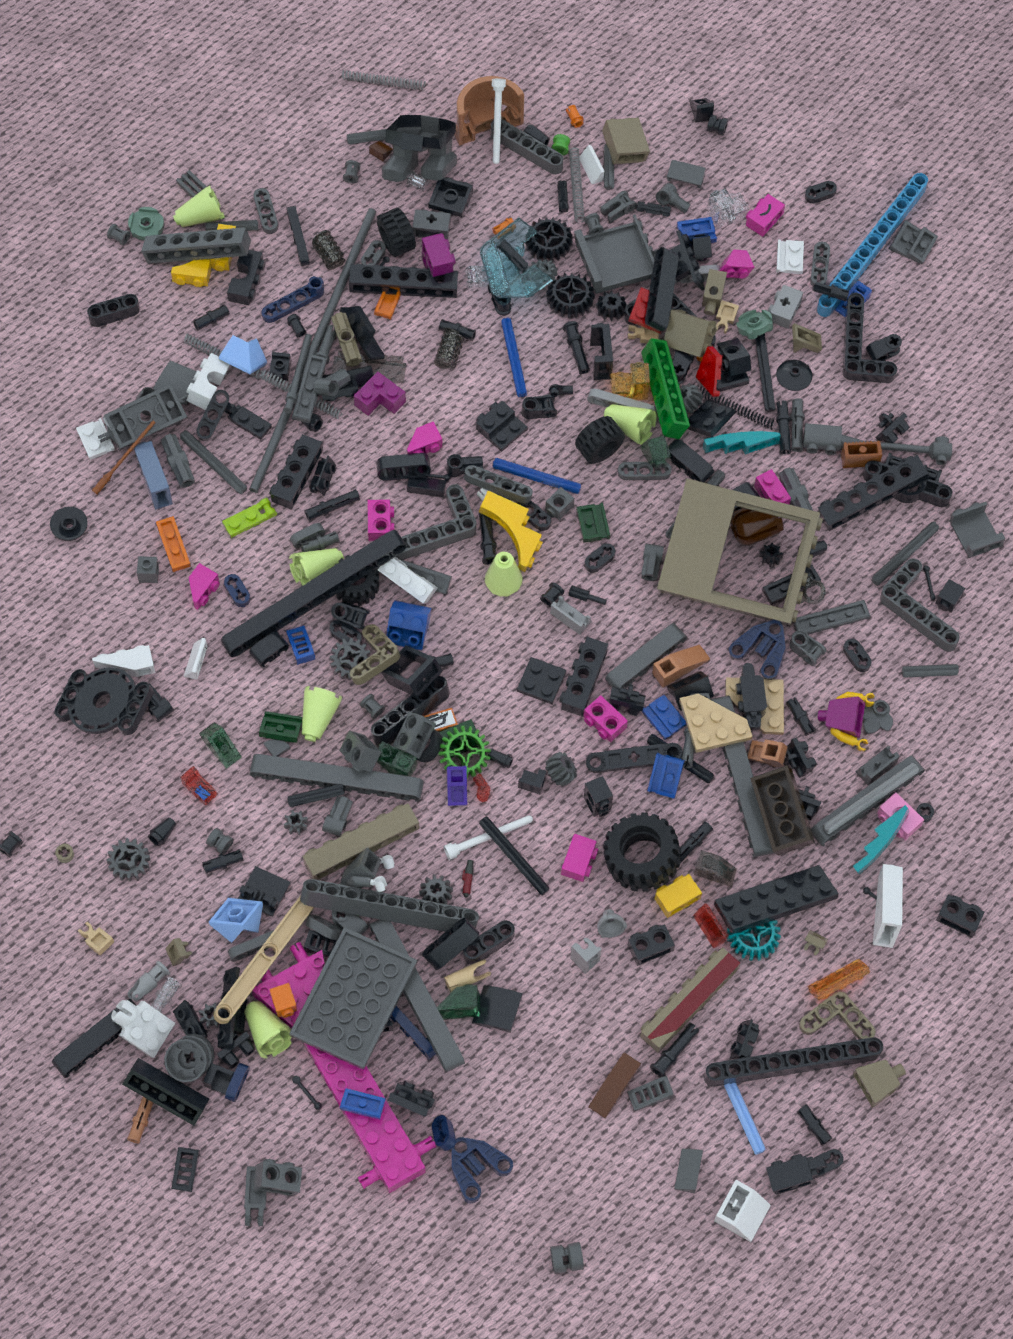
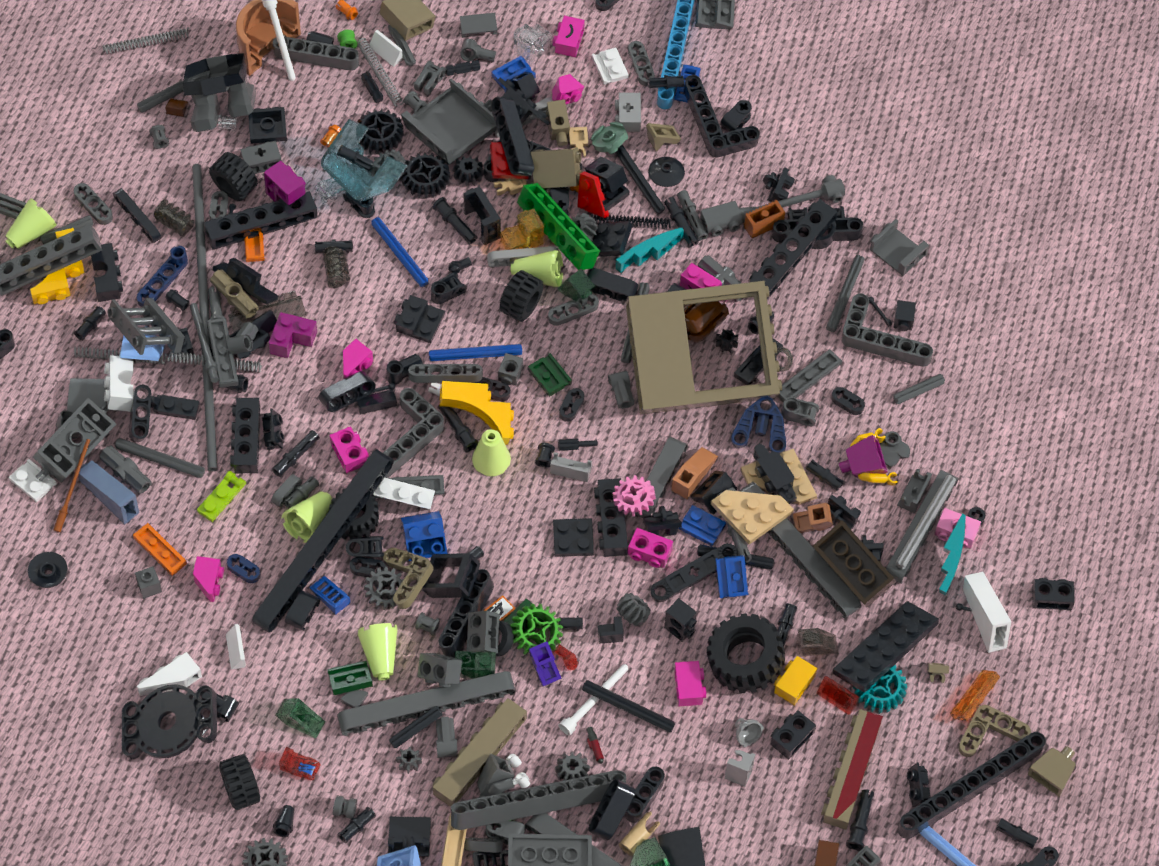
camera: 25 degrees left, 5 degrees down
(137, 780) = (239, 782): none -> black tyre
(266, 335) = (153, 316): none -> dark grey fence
(611, 664) = (634, 495): none -> bright pink gear

